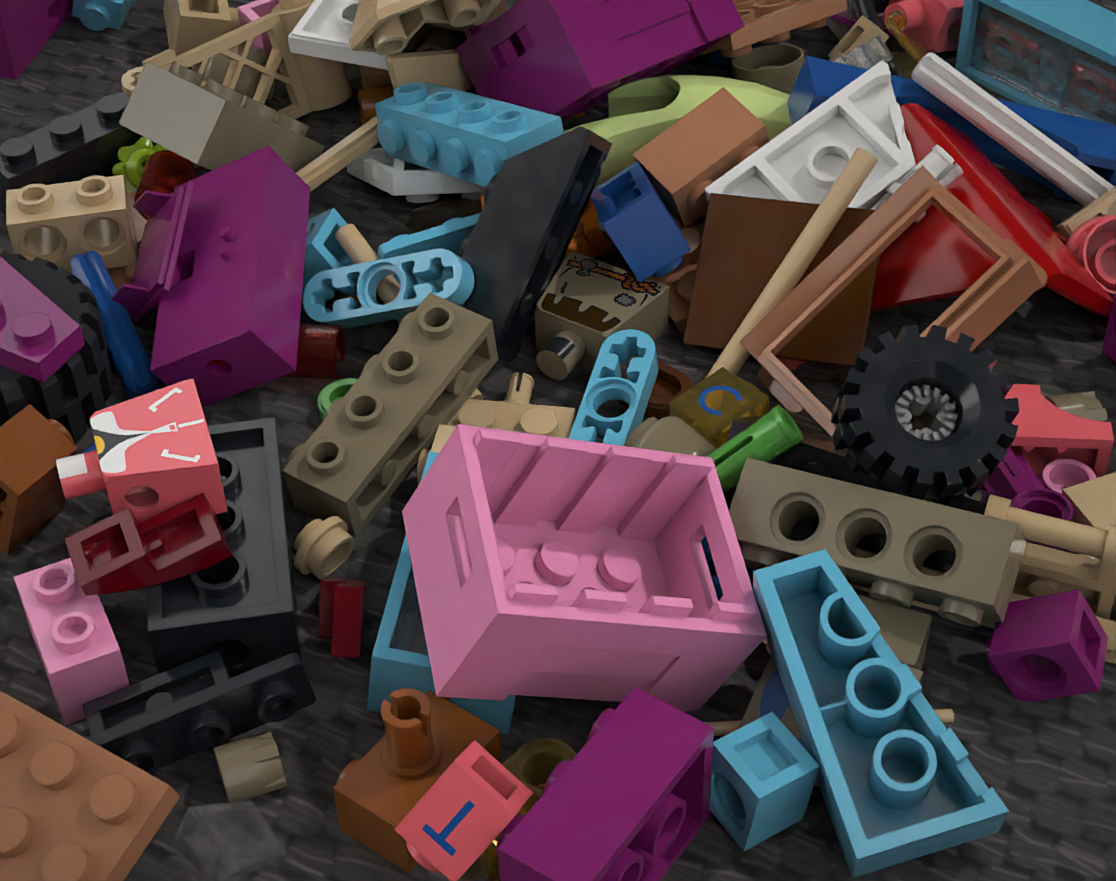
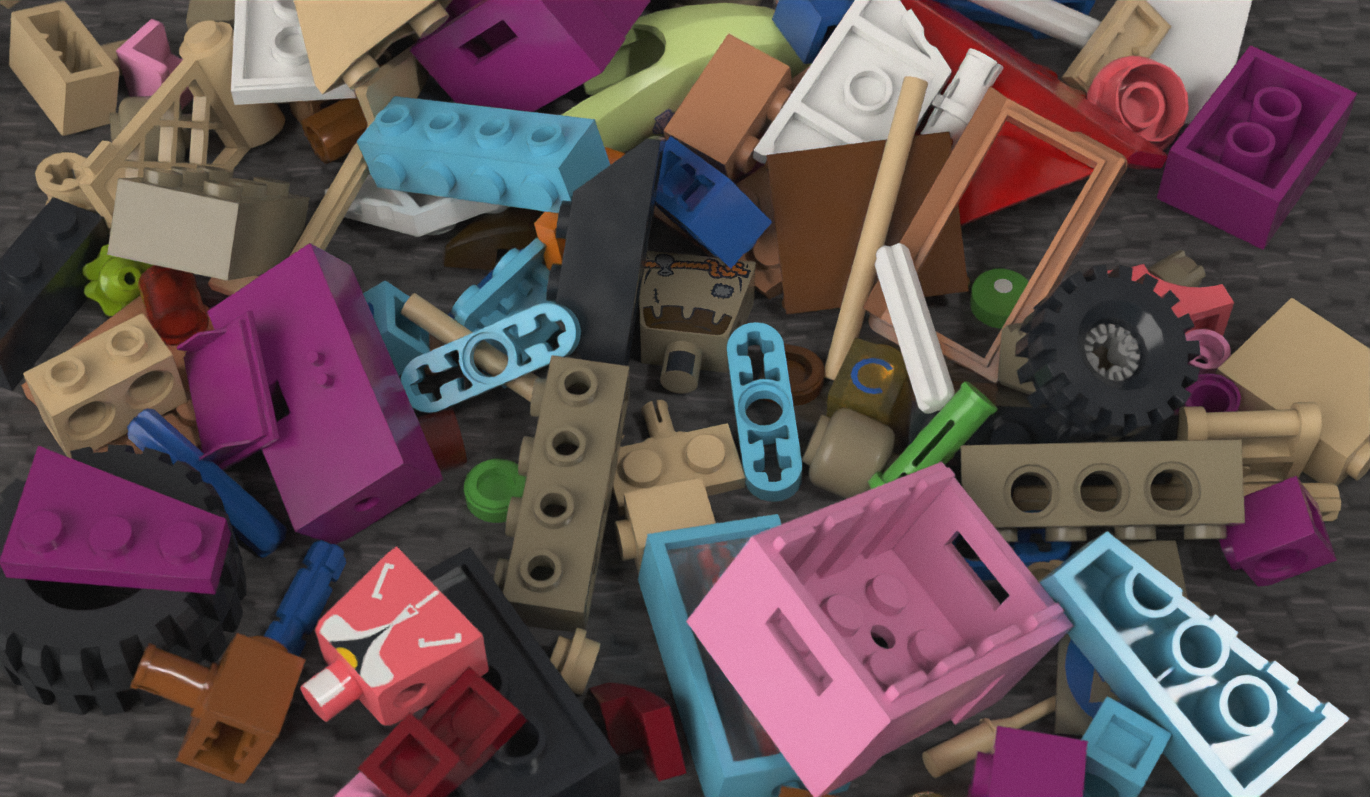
camera: 25 degrees left, 10 degrees up
(764, 356) = (914, 328): none -> white axle

